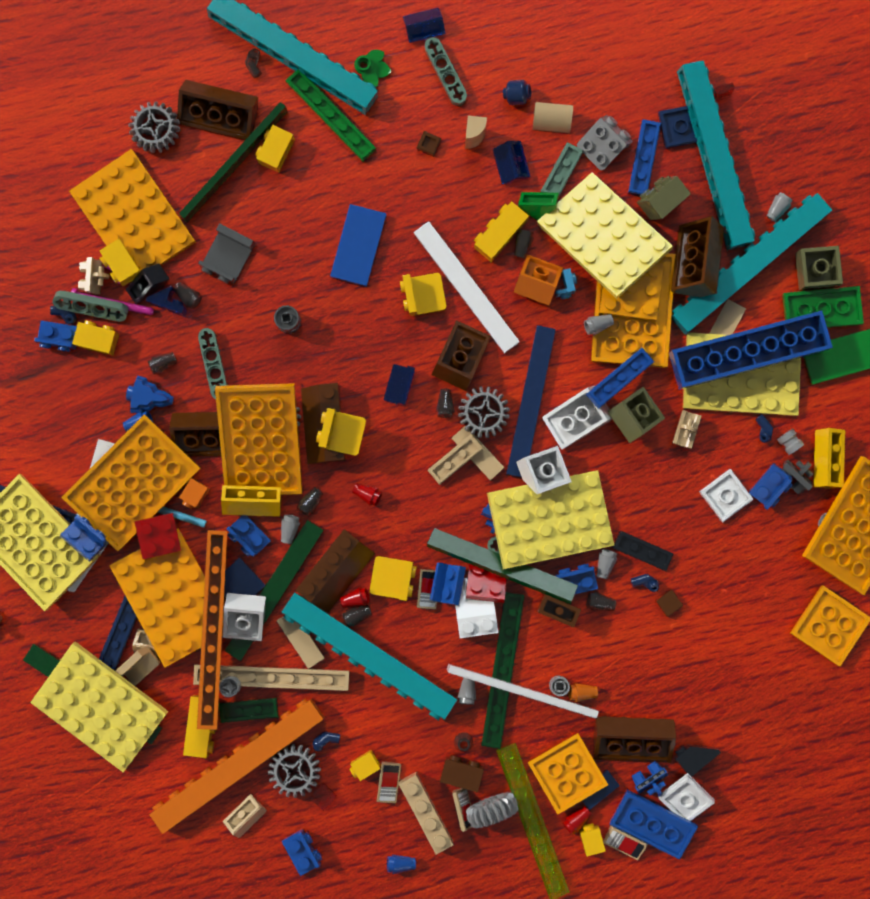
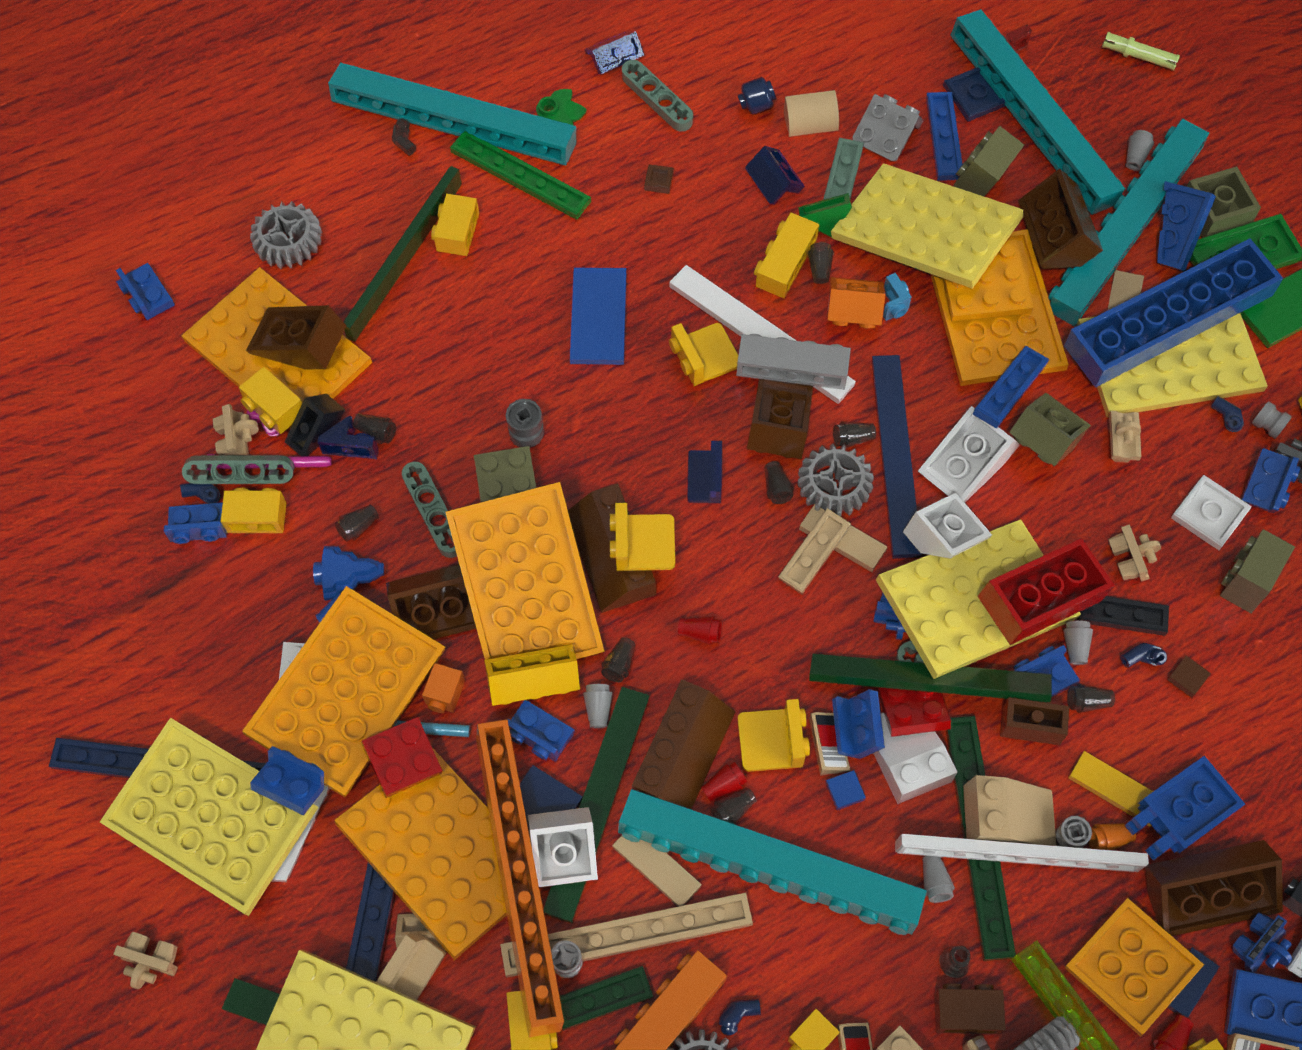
camera: 15 degrees left, 20 degrees down
(49, 147) = (146, 291): none -> blue bracket
(146, 216) = (298, 336): none -> reddish brown slope
(217, 109) = (366, 197): reddish brown slope -> none
(227, 255) = (420, 363): dark grey panel -> none
(265, 359) = (504, 472): none -> olive brick
(429, 621) = (845, 790): none -> blue tile
(475, 131) = (716, 143): tan brick -> none
(479, 319) = (793, 361): none -> light grey brick
(506, 380) = (853, 433): none -> clear smoke cone
(524, 665) = (1008, 811): none -> tan slope
(592, 531) = (1045, 591): none -> red brick
(596, 324) = (955, 330): light grey cone -> none
(597, 662) = (1109, 784): none -> yellow tile
(634, 687) = (1186, 808): none -> blue tile
(662, 505) = (1126, 542): none -> tan hips
(735, 548) = (1255, 570): none -> olive brick
(787, 276) = (1183, 221): none -> blue wing
(813, 123) = (1140, 51): none -> yellowish green pin

